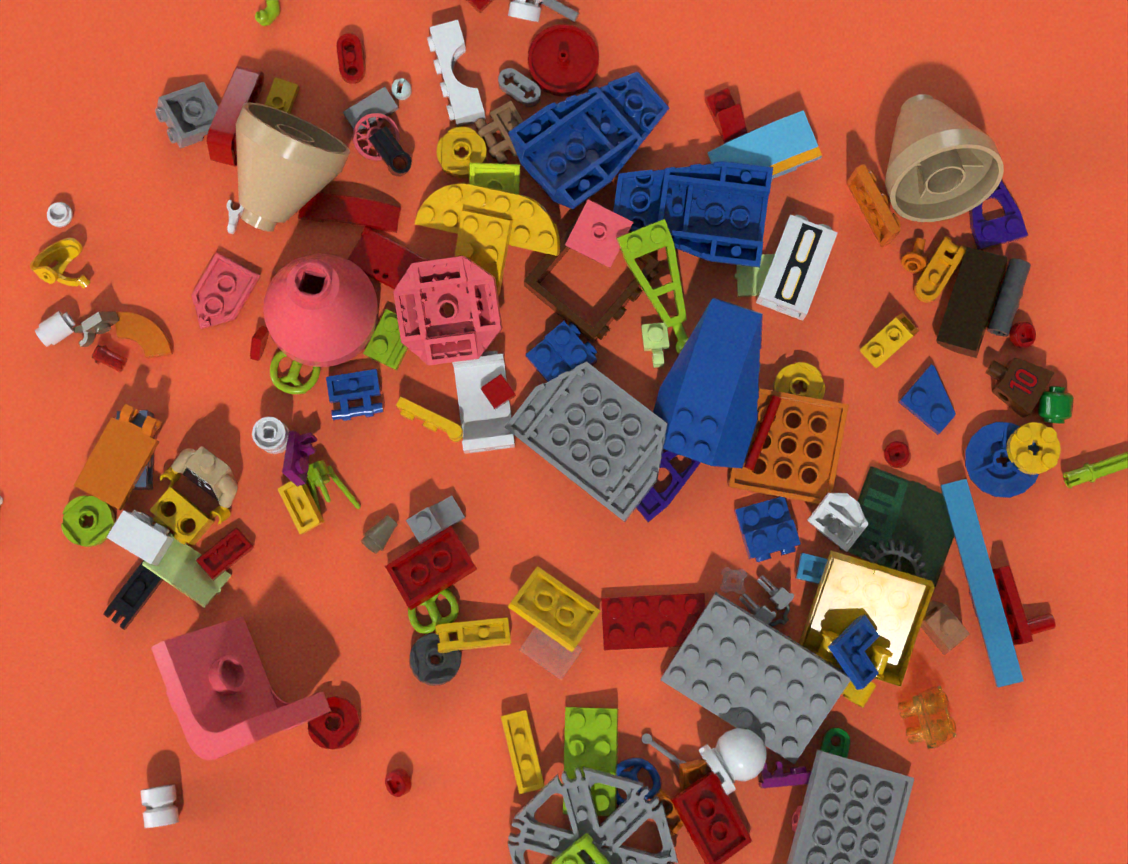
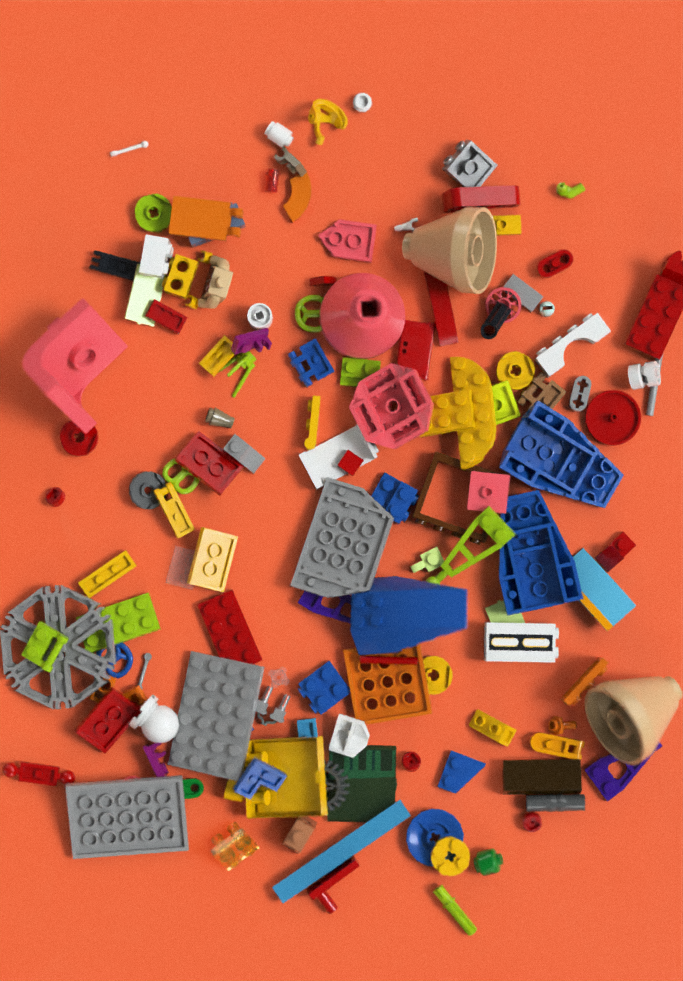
camera: 70 degrees right, 5 degrees up
(1019, 384) = (494, 831): reddish brown torso -> none

